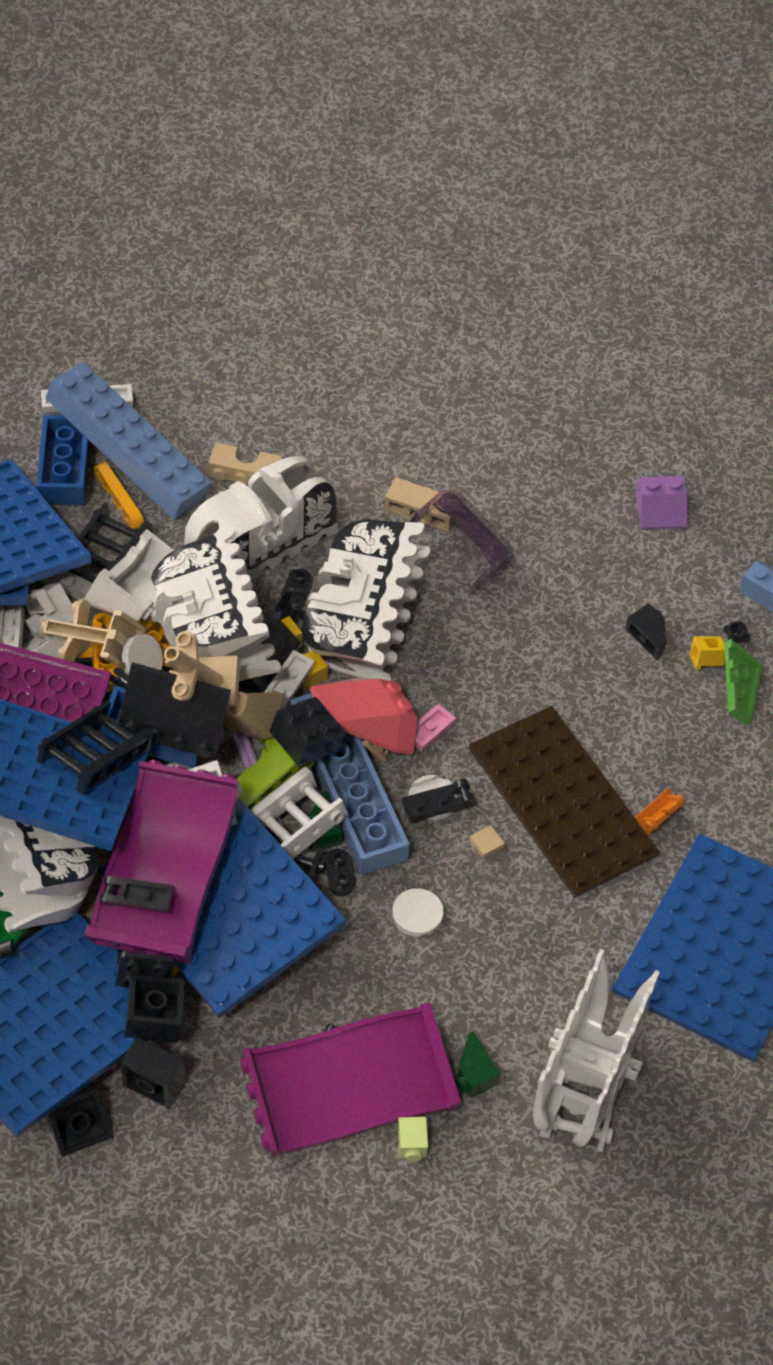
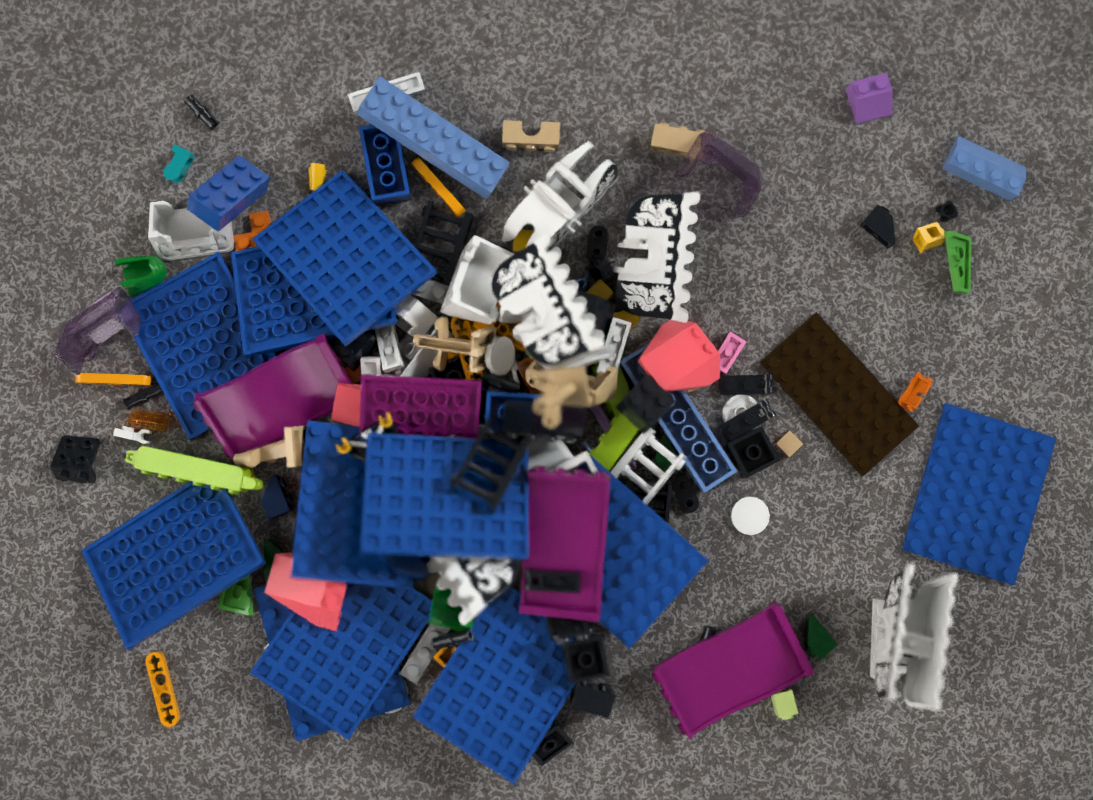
camera: 10 degrees left, 30 degrees up
(435, 835) = (752, 452): none -> black brick
(446, 766) = (745, 384): none -> black plate

